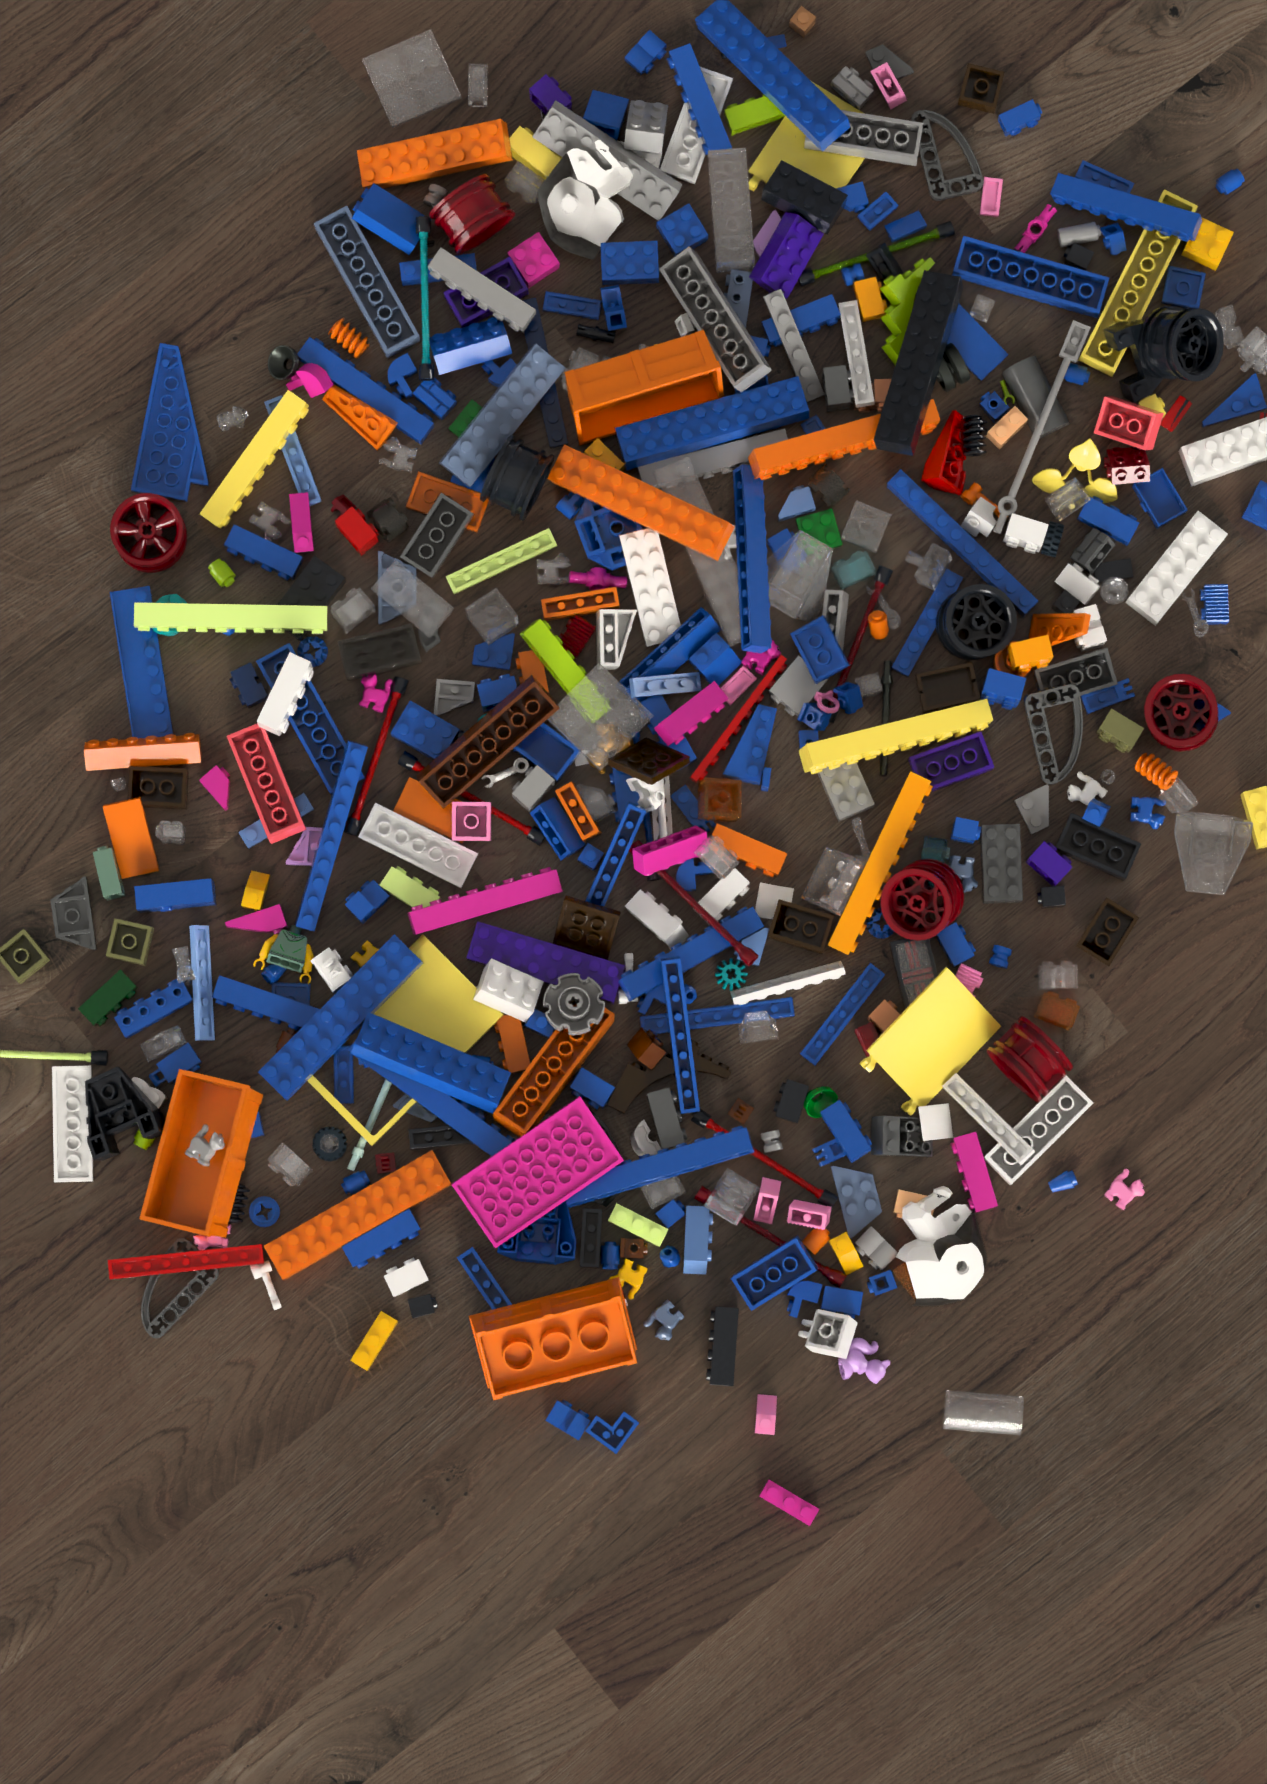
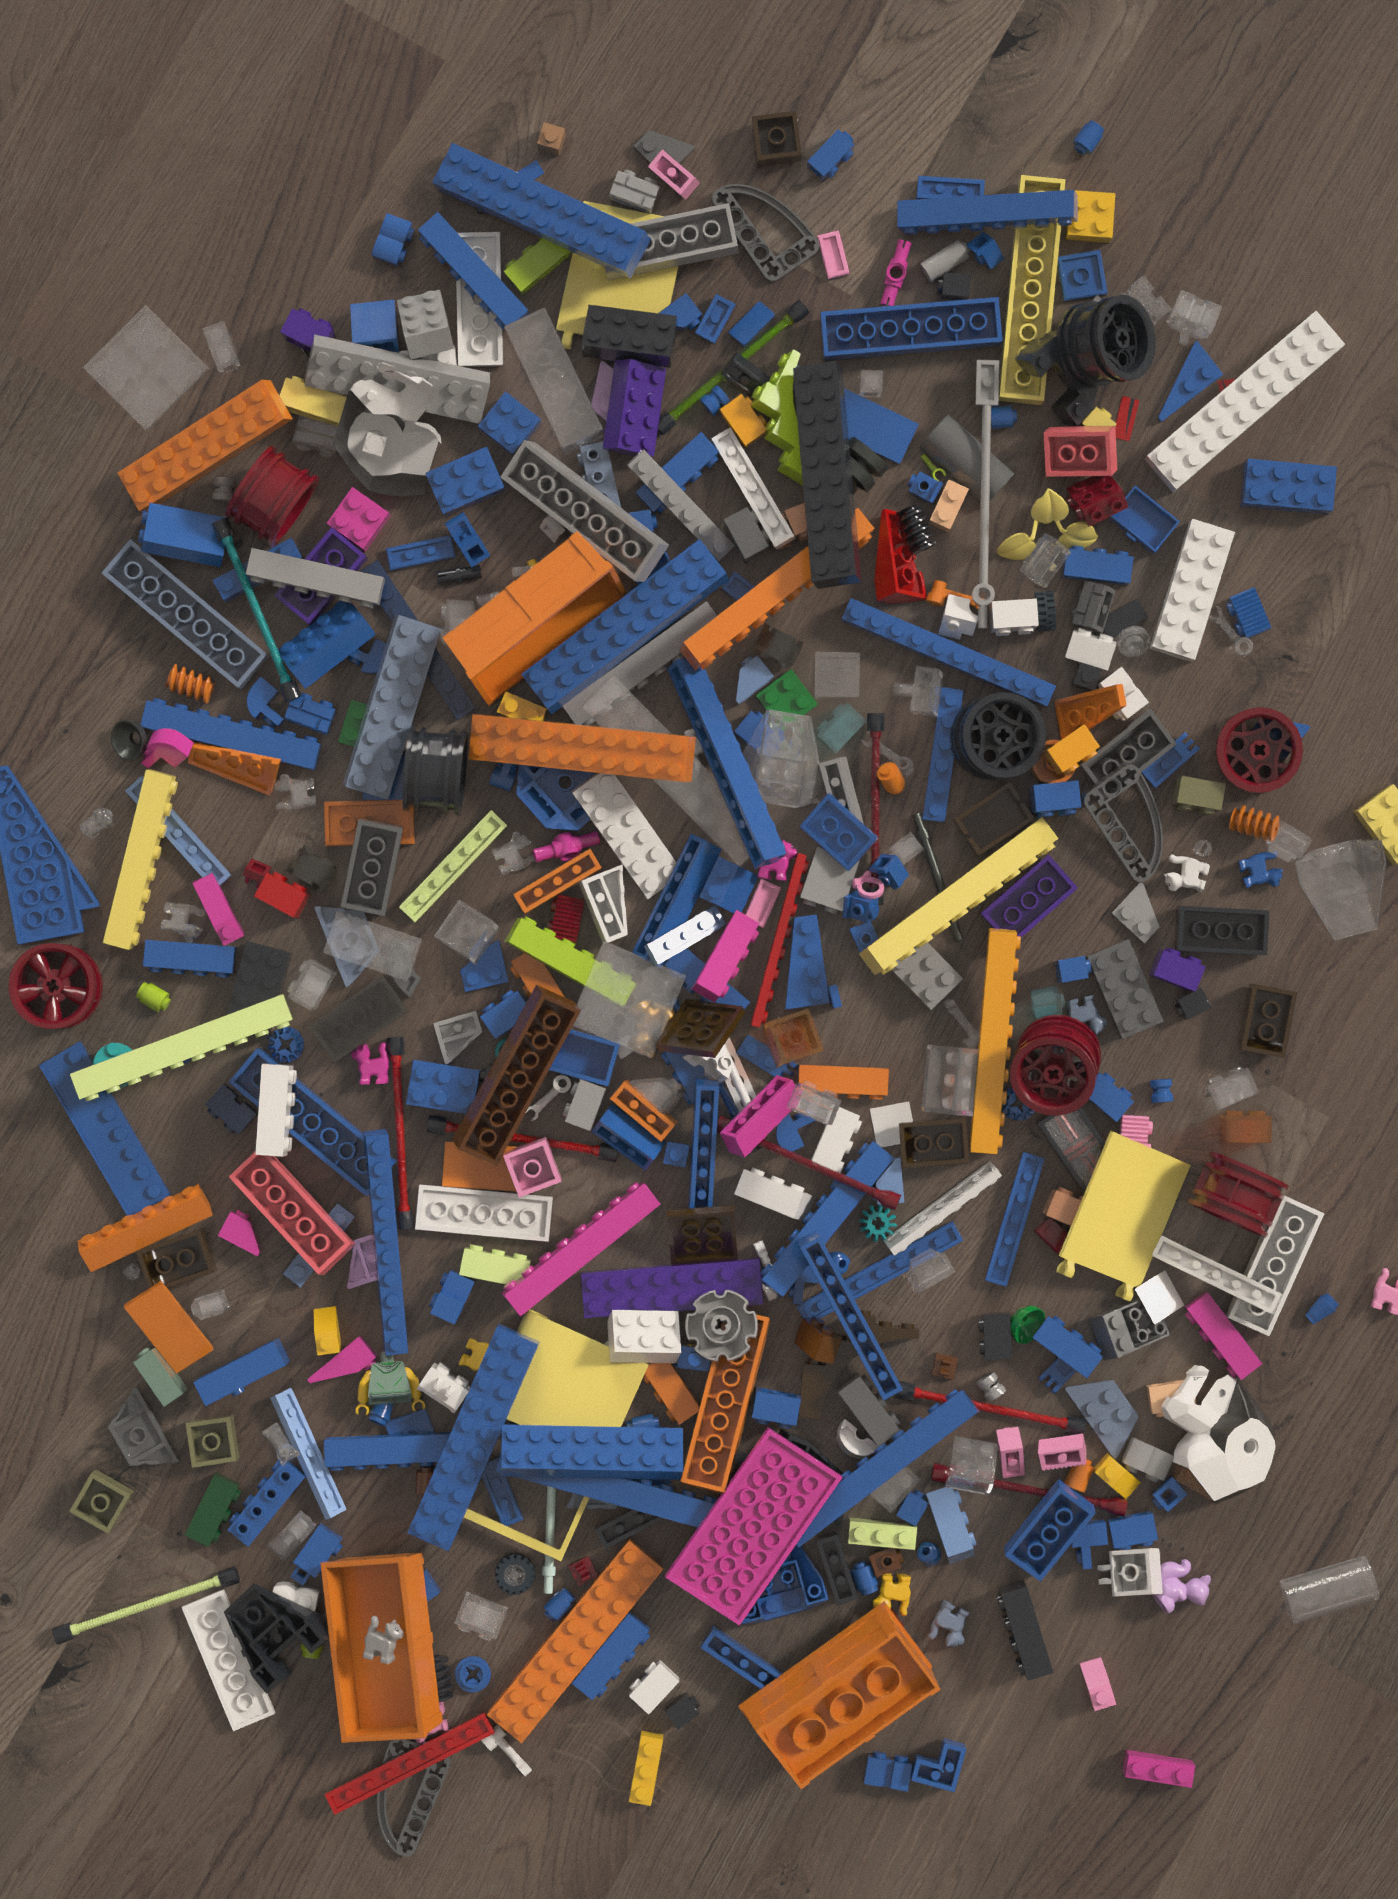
camera: 25 degrees left, 5 degrees up
(1096, 812) = (1207, 895): blue brick -> none

